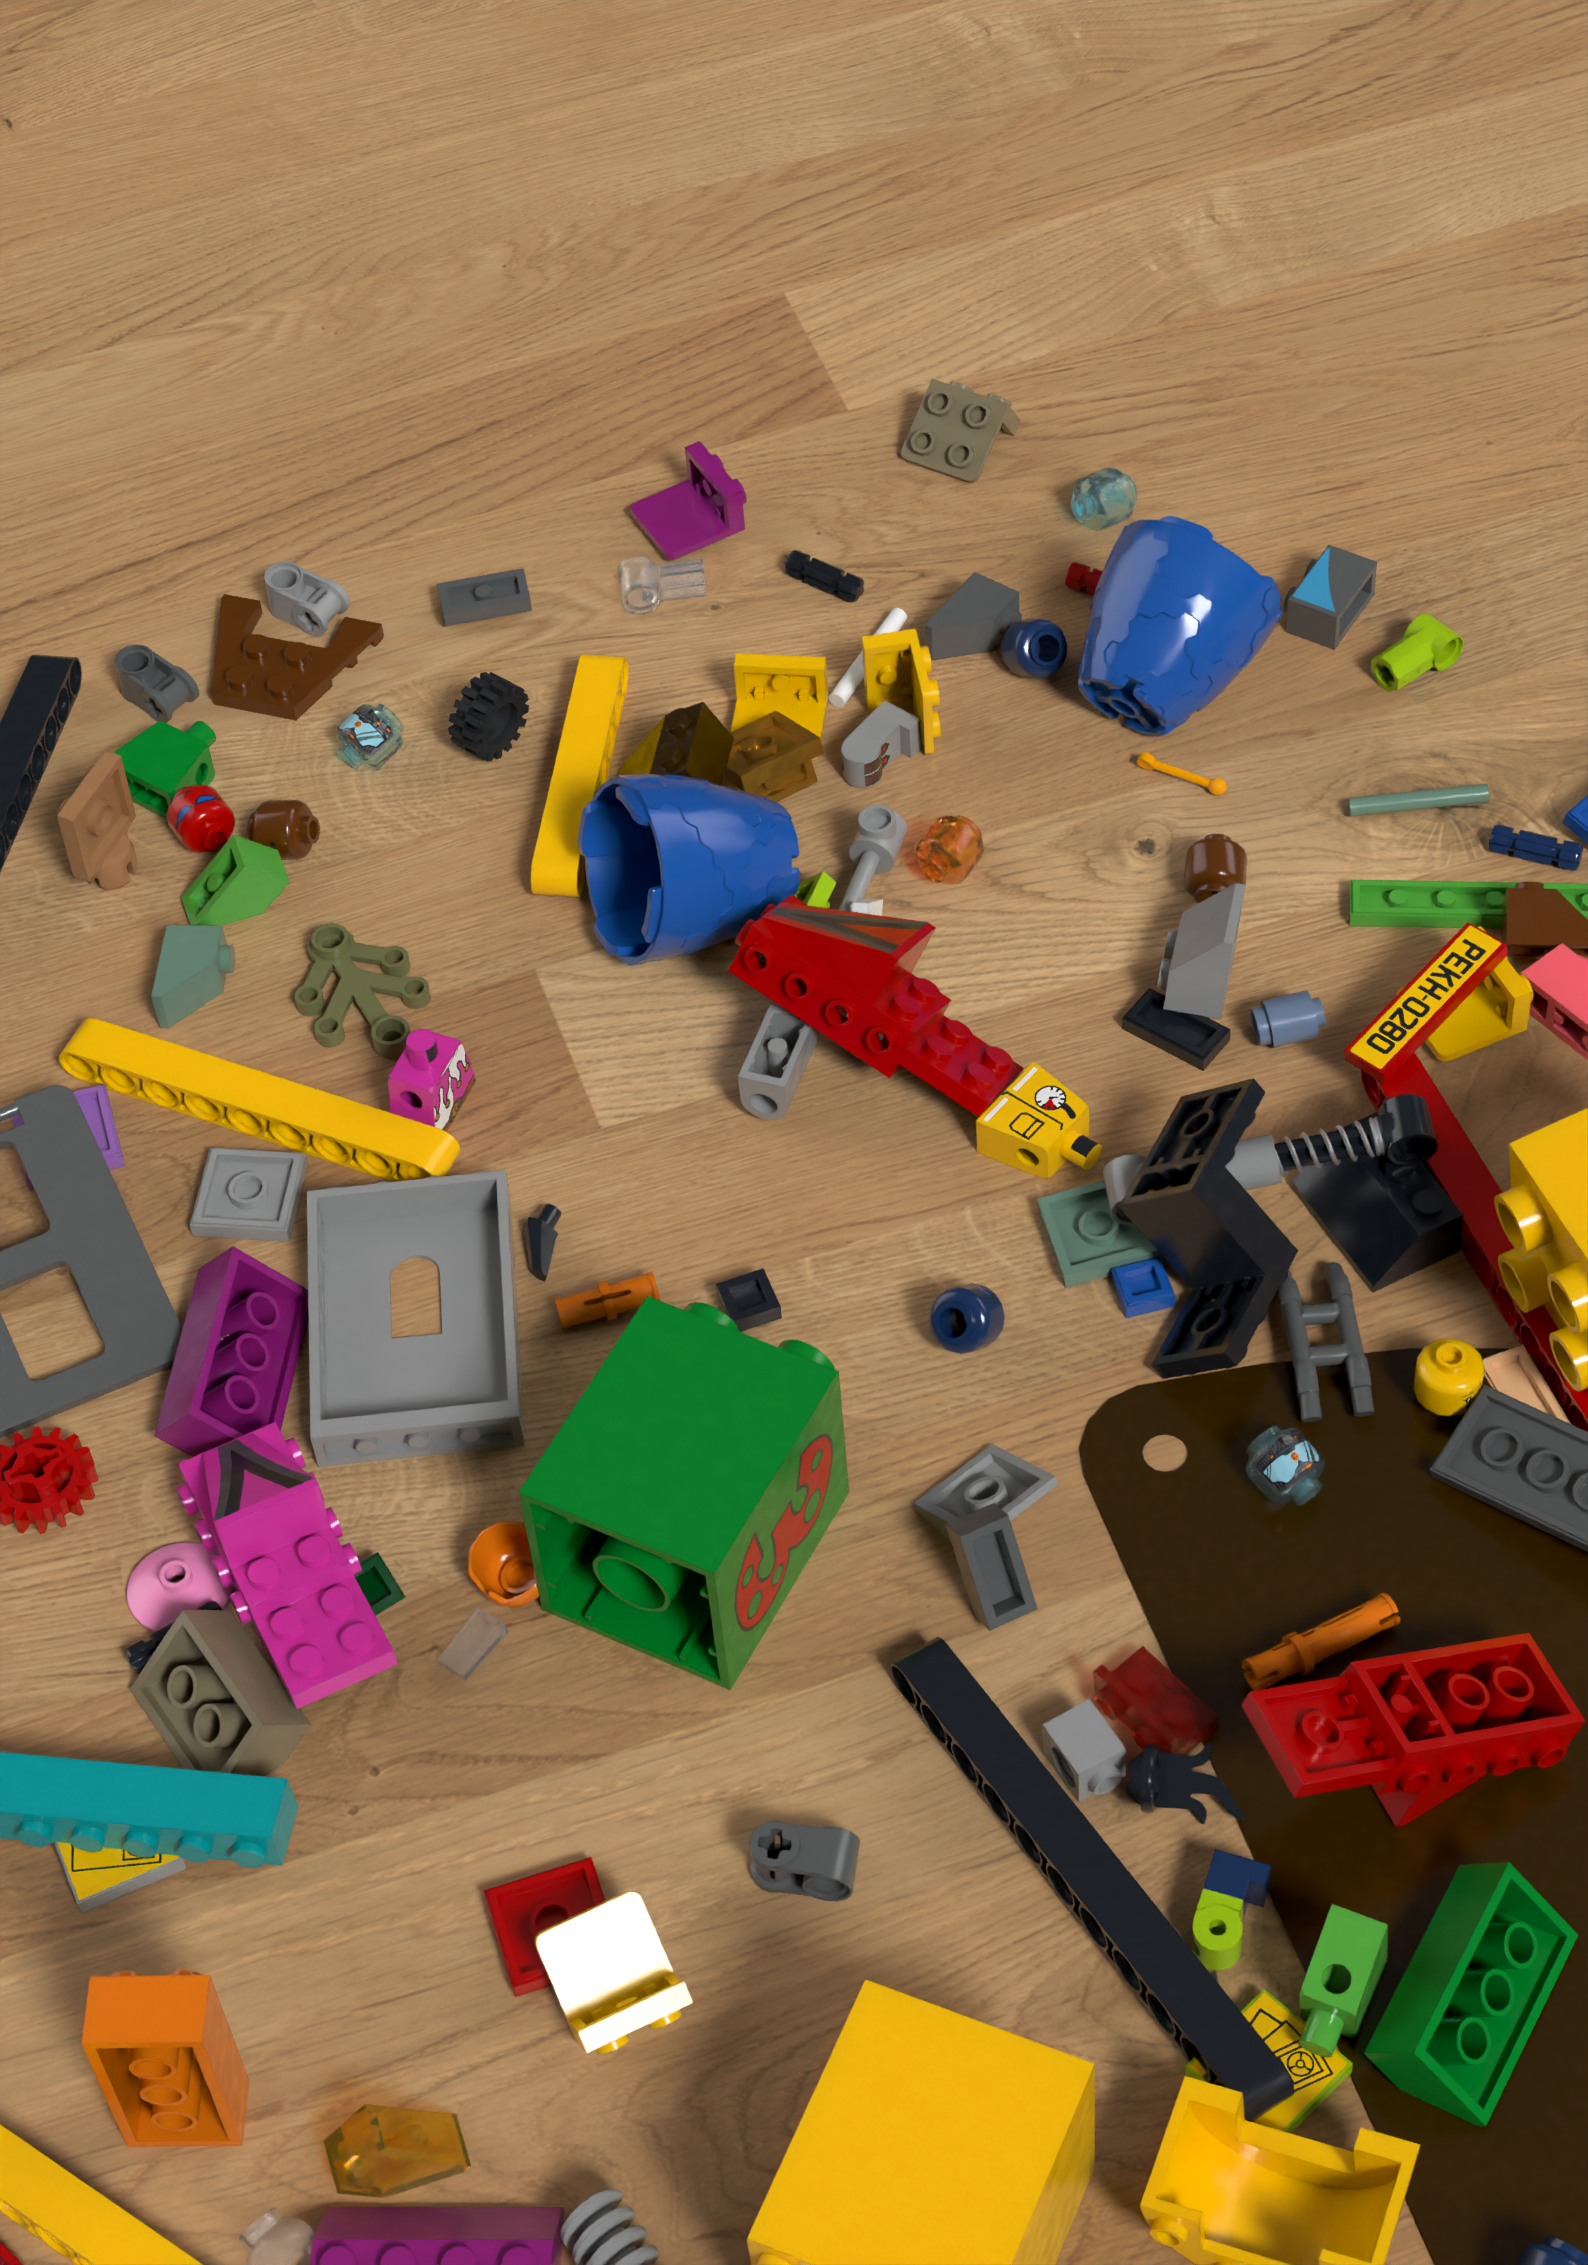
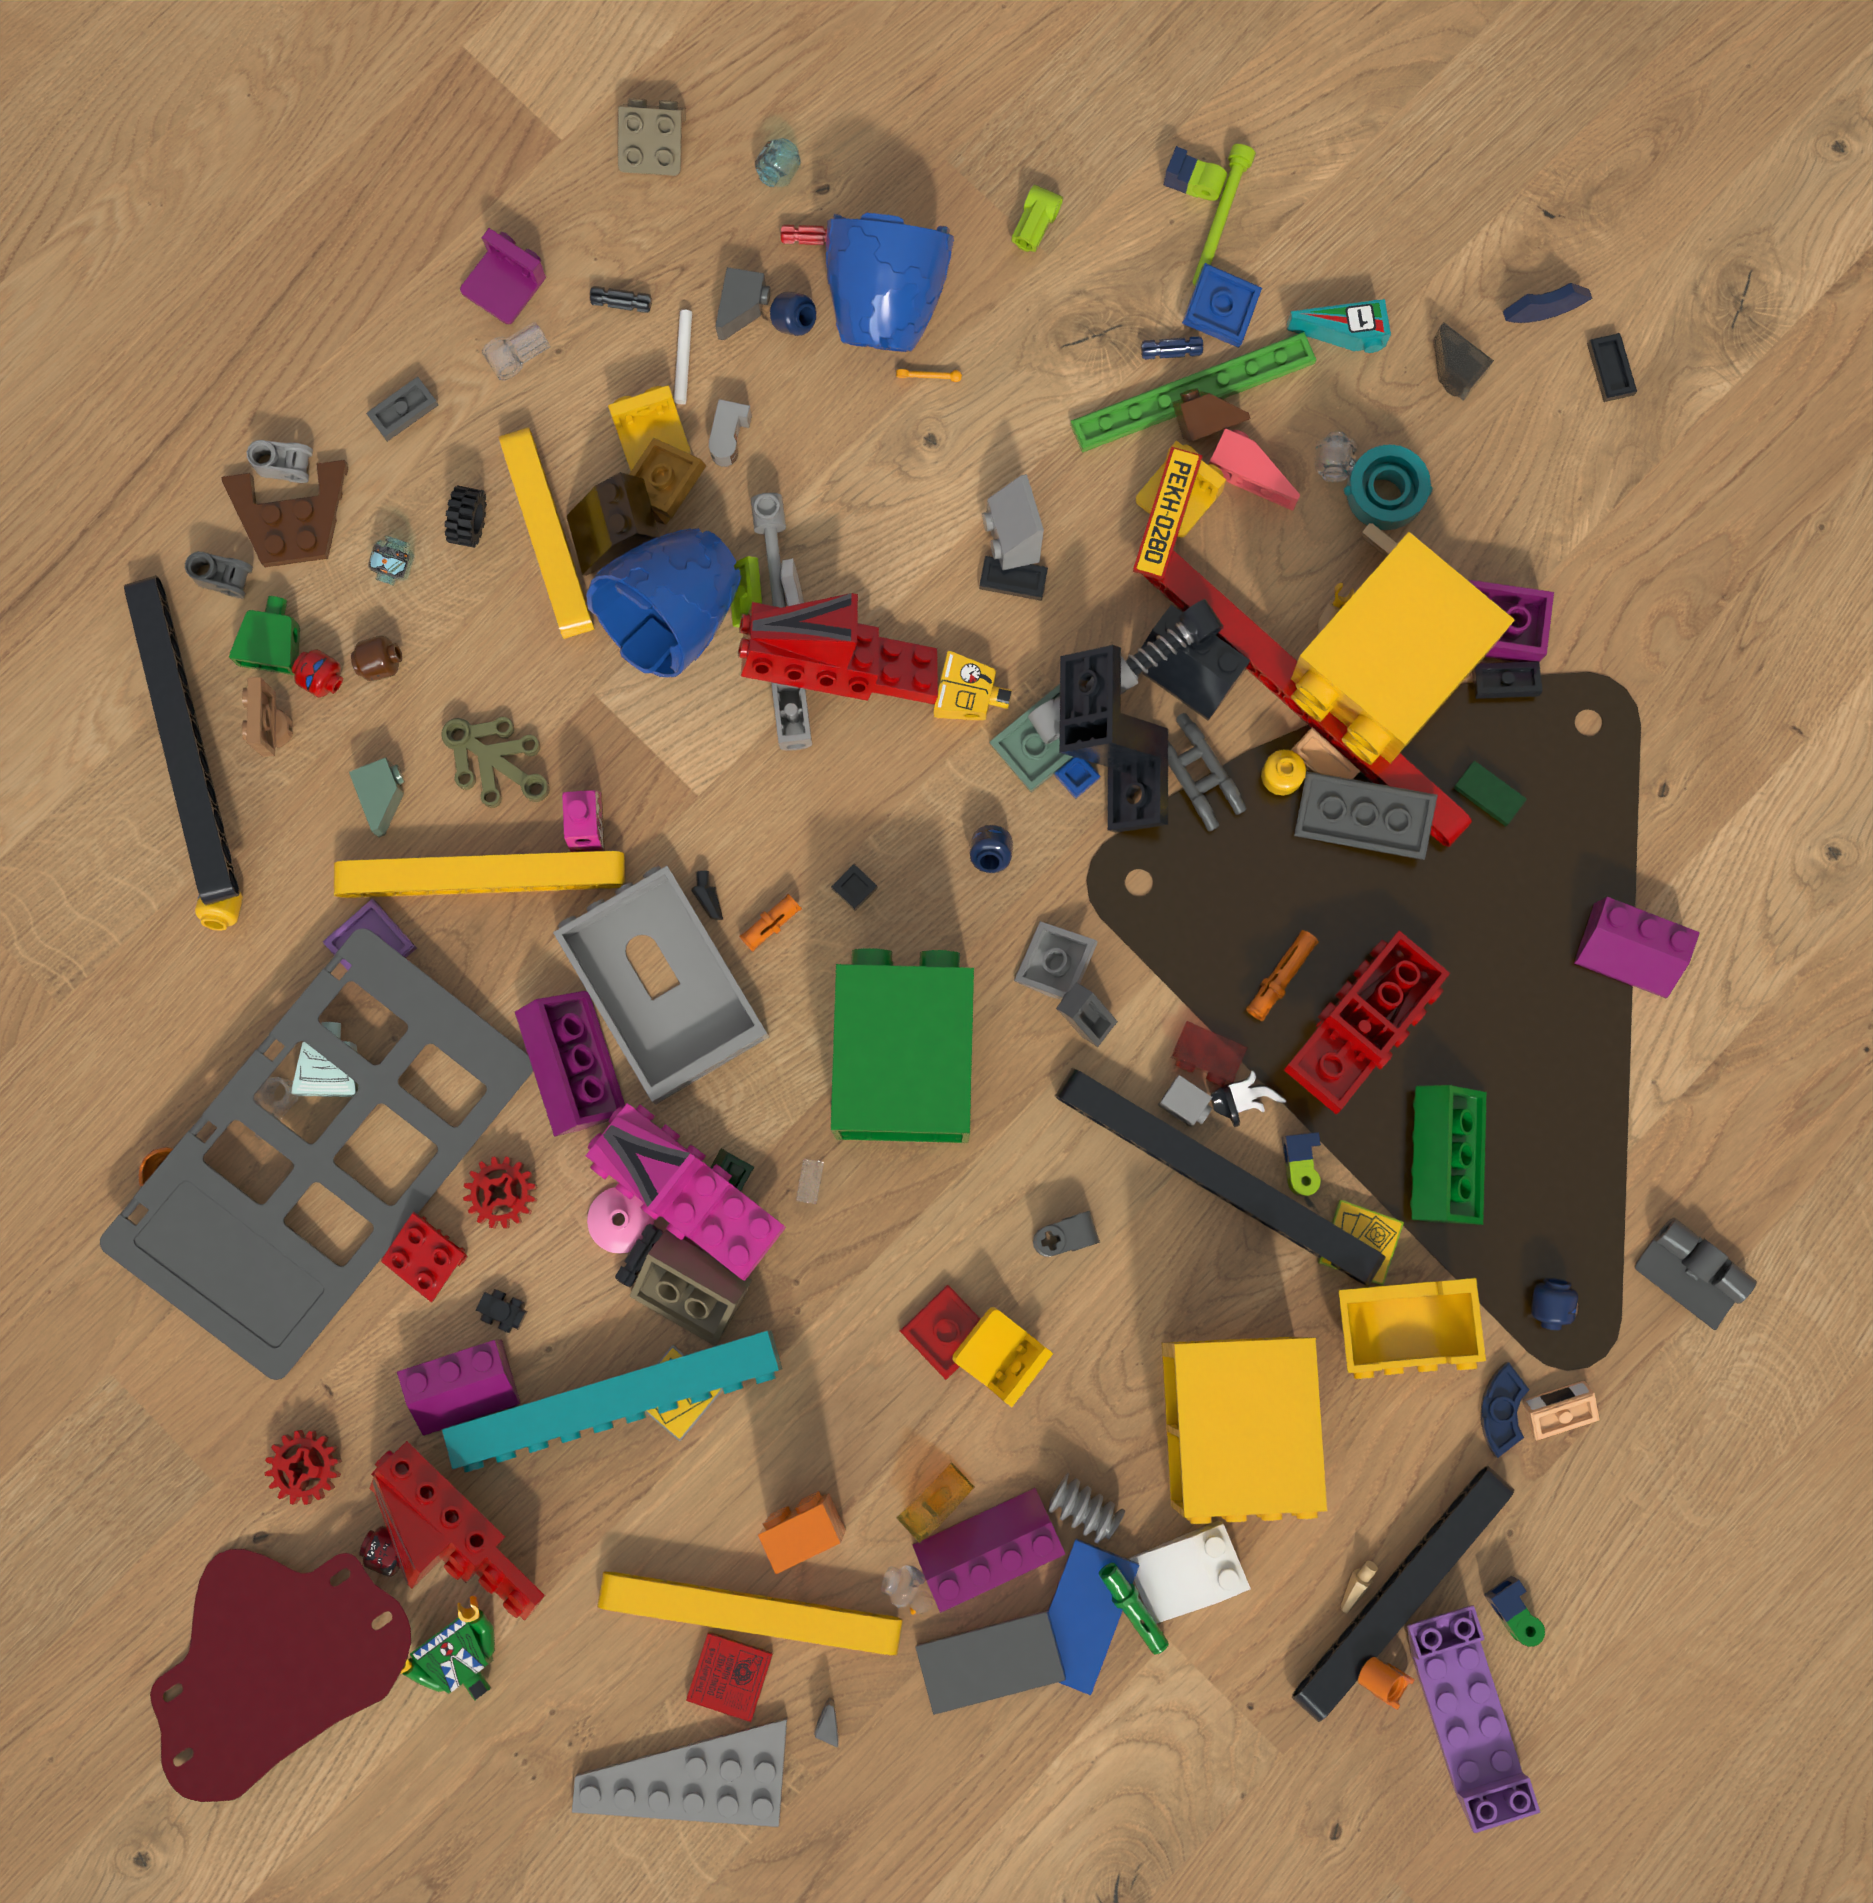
camera: 30 degrees left, 30 degrees up
(236, 884) = (370, 716): bright green slope -> none
(249, 1194) = (509, 938): light grey tile -> none
(503, 1564) = (809, 1128): orange hair -> none
(898, 674) = (719, 370): yellow bracket -> none
(950, 848) = (815, 501): clear orange head -> none
(1214, 866) = (987, 449): reddish brown head -> none
(1285, 1466) = (1215, 870): head -> none
(1287, 1019) = (1080, 547): sand blue brick -> none
(1330, 596) = (962, 190): dark grey brick -> none
(1341, 1979) = (1379, 1172): bright green torso -> none
(1418, 800) = (1084, 337): sand green bar -> none

